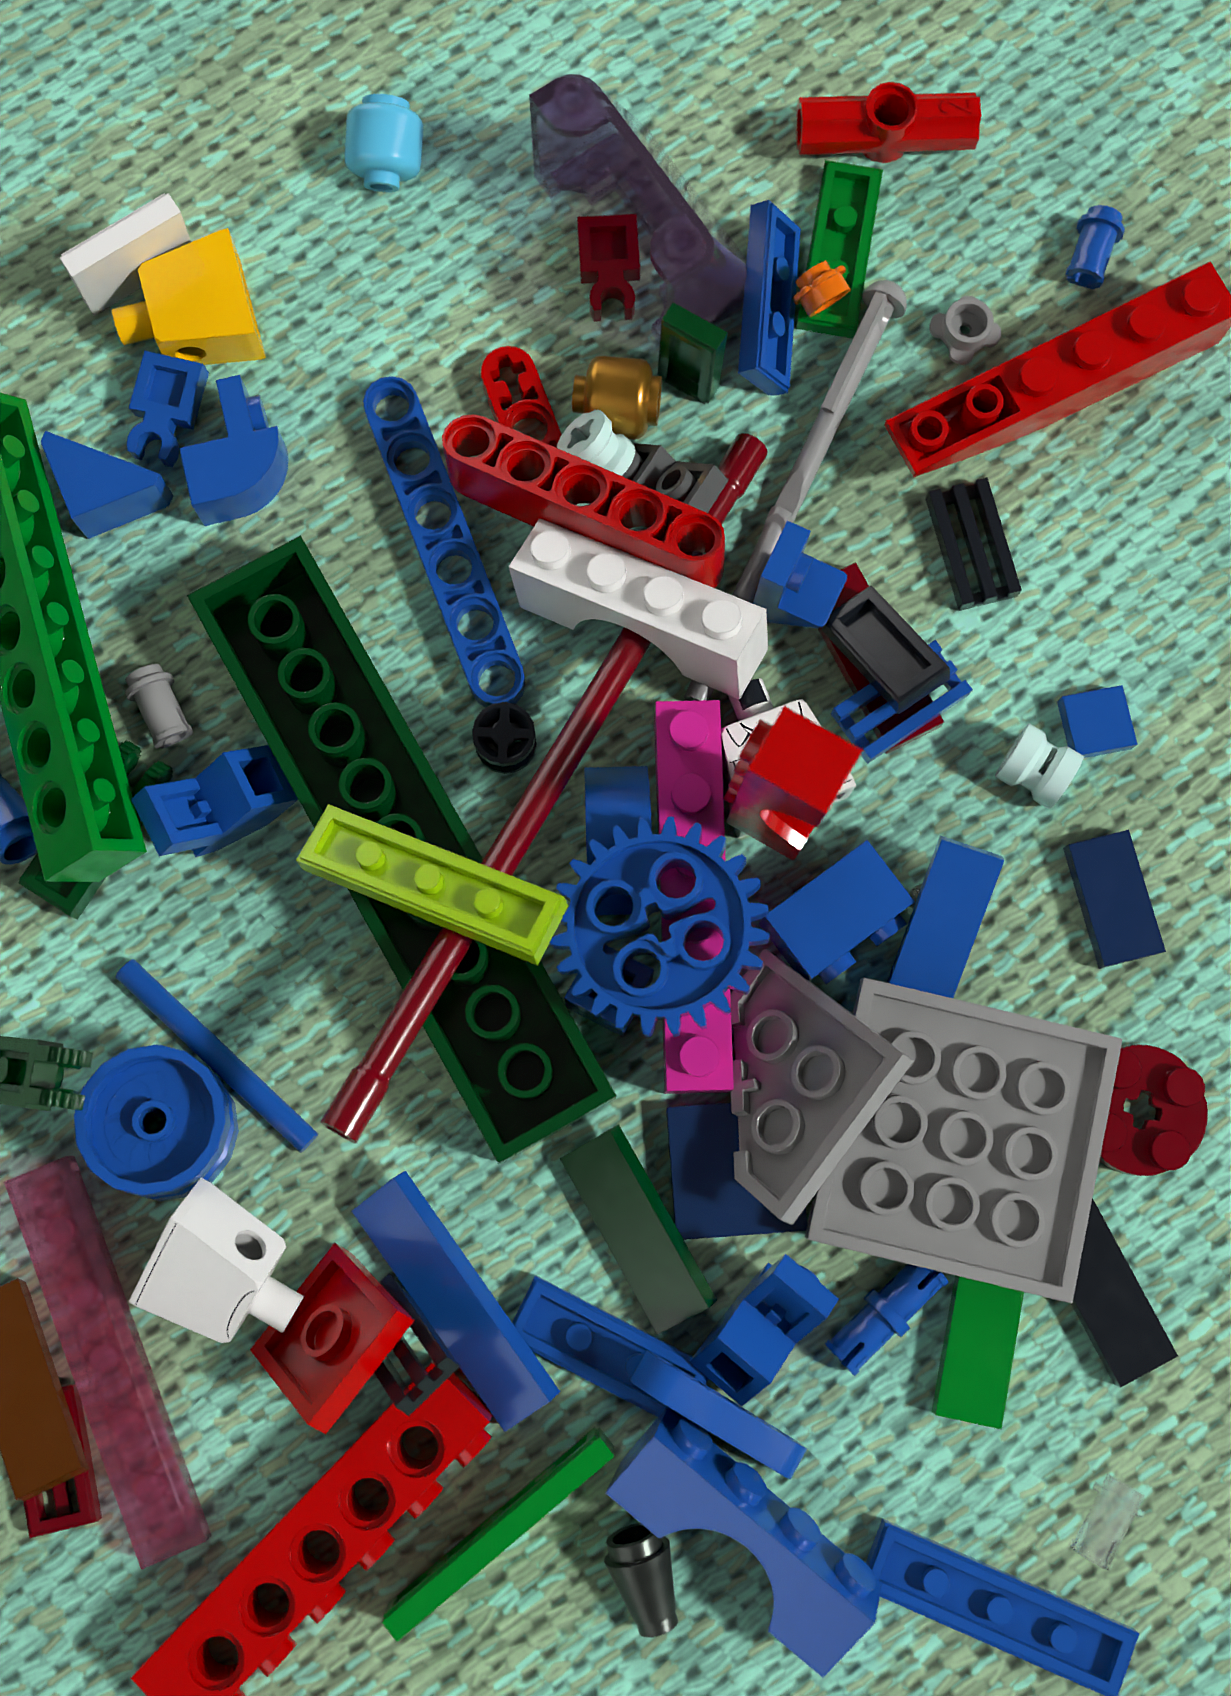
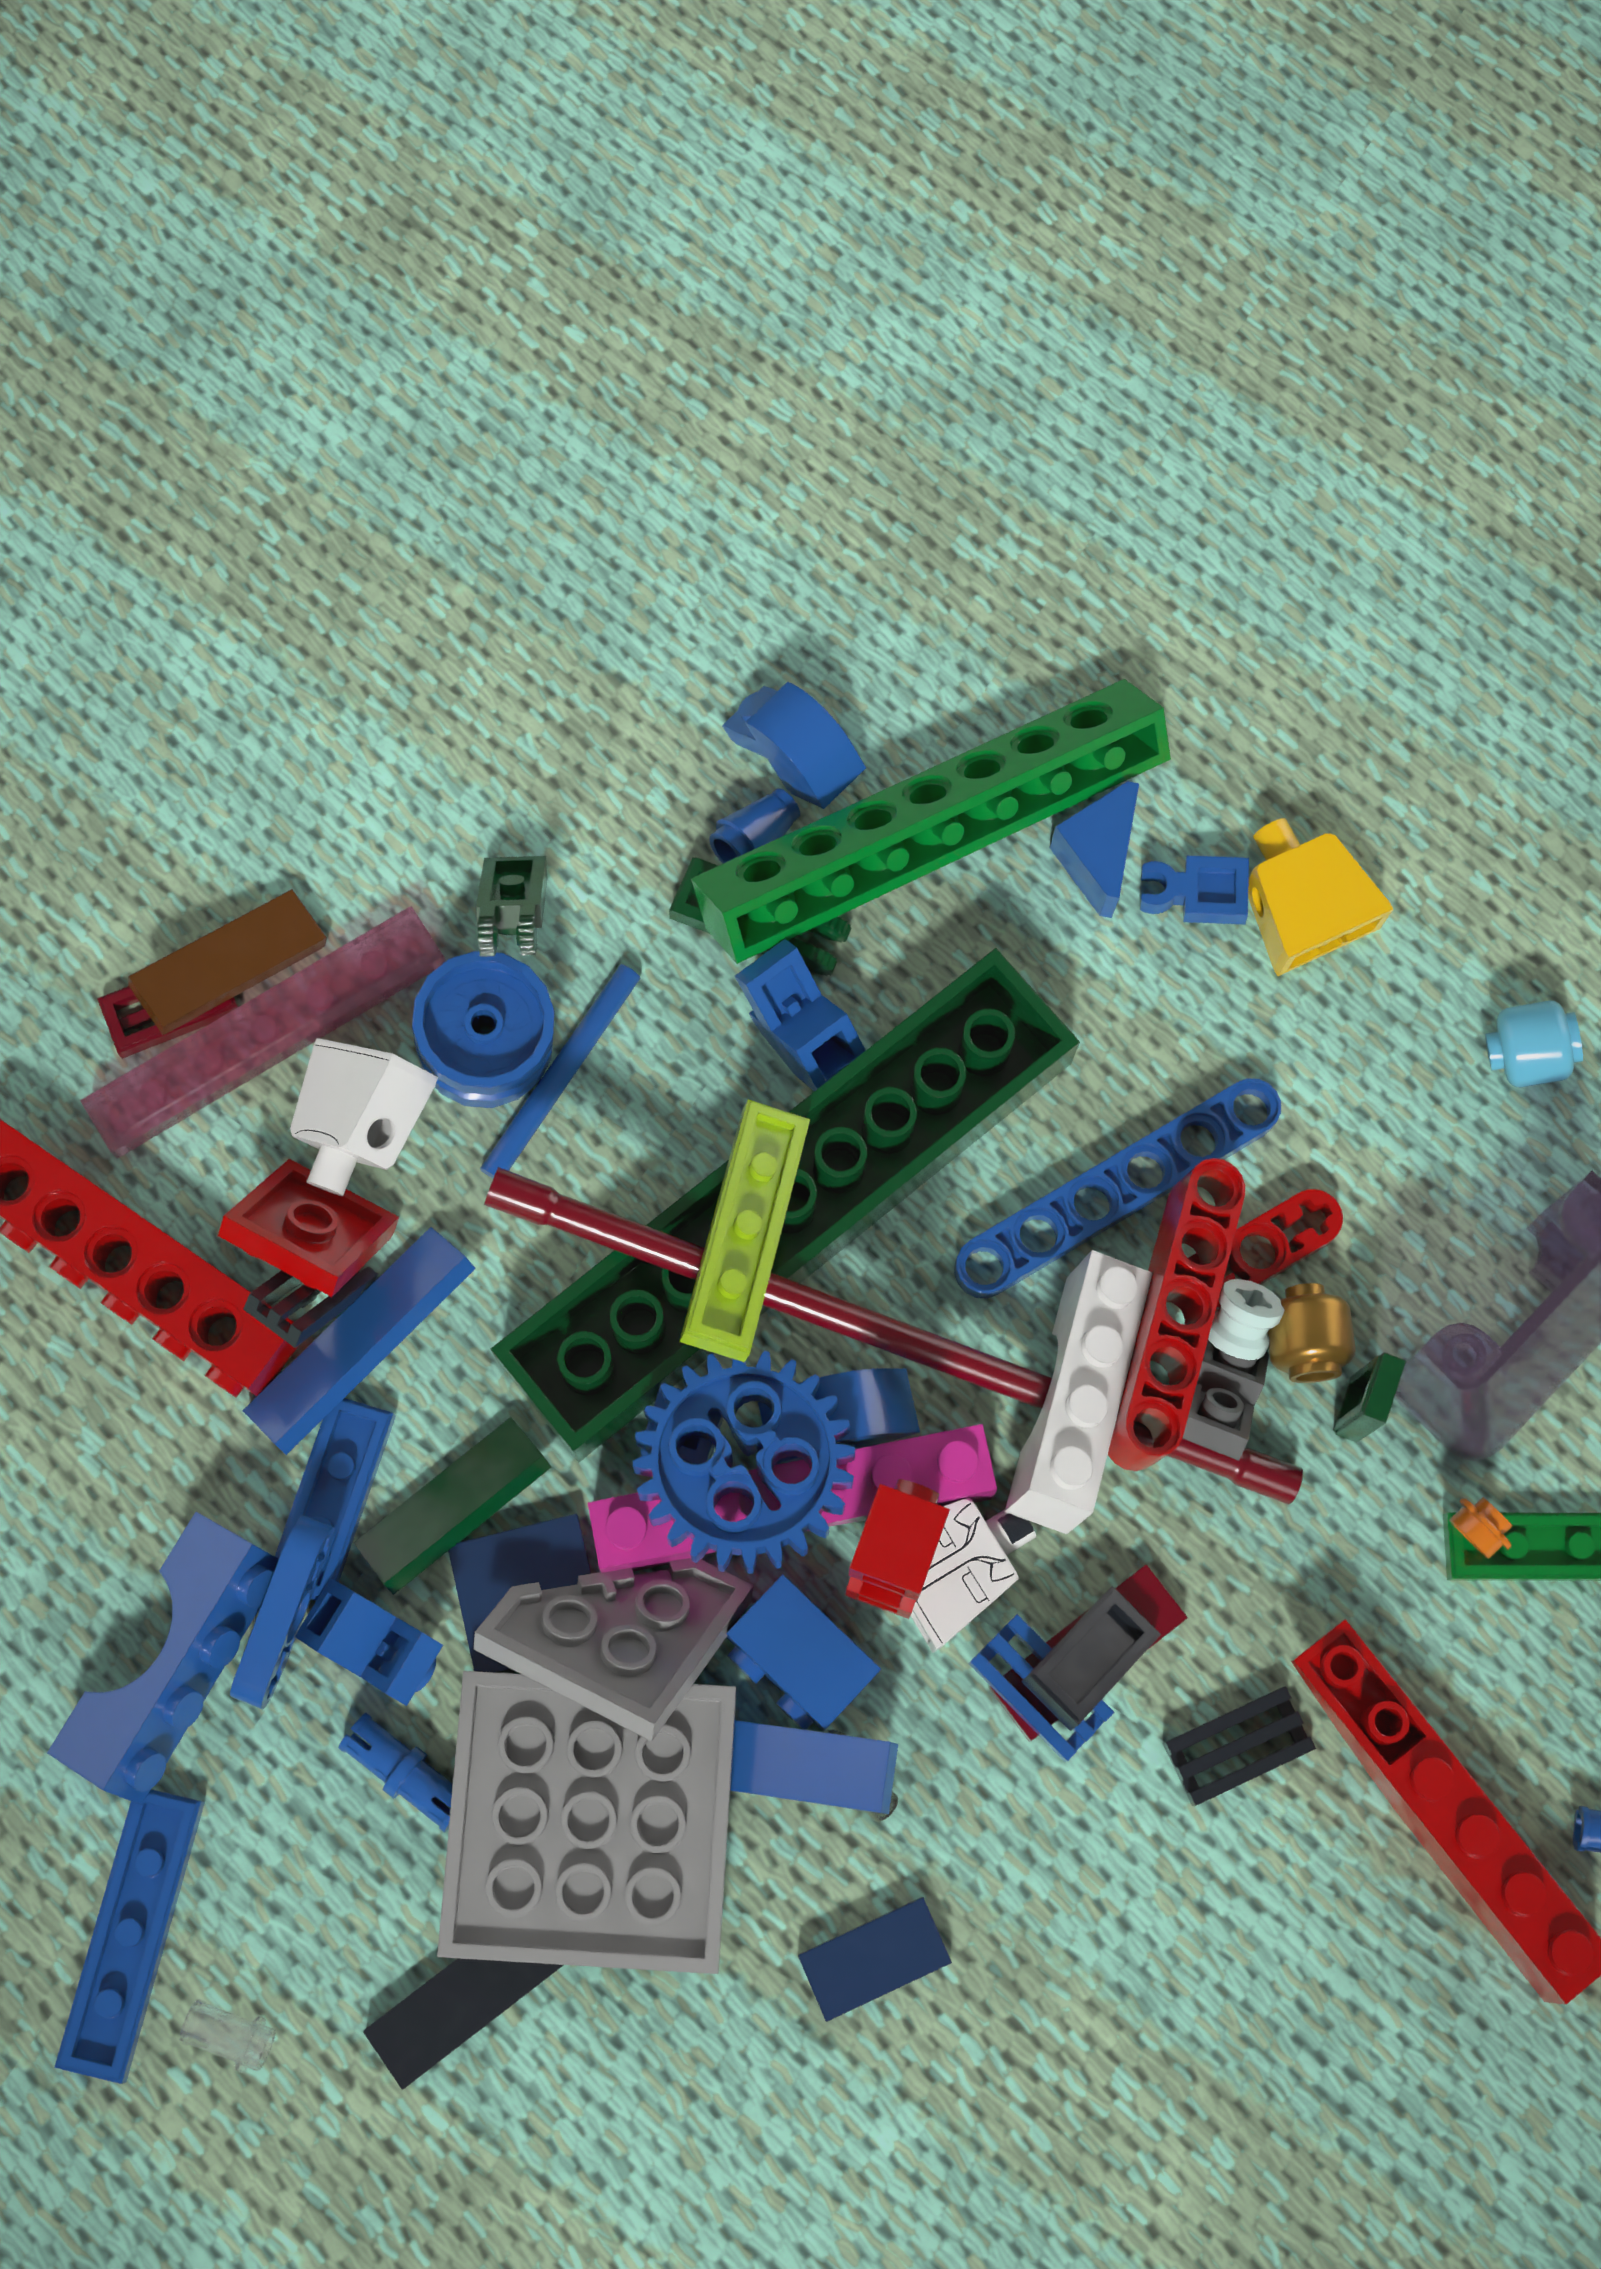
camera: 80 degrees right, 5 degrees down
(108, 262) = (1330, 809): white tile -> none
(158, 705) = (891, 947): light grey pin -> none
(237, 472) = (1145, 974): blue brick -> none
(497, 1533) = (150, 1420): green tile -> none
(504, 725) = (923, 1272): black wheel -> none
(609, 259) = (1467, 1294): dark red plate -> none
(644, 1577) = (121, 1568): pearl dark grey cone -> none
(768, 299) = (1446, 1474): blue tile -> none
(796, 585) = (1142, 1551): blue slope -> none
(883, 301) = (1494, 1602): light grey bar -> none
(977, 317) = (1504, 1701): light grey plate -> none
(977, 1352) = (375, 1875): green tile -> none
(1027, 757) = (1006, 1835): light aqua wheel -> none
(1097, 721) = (1066, 1913): blue tile -> none
(1176, 1097) = (620, 2044): dark red plate -> none

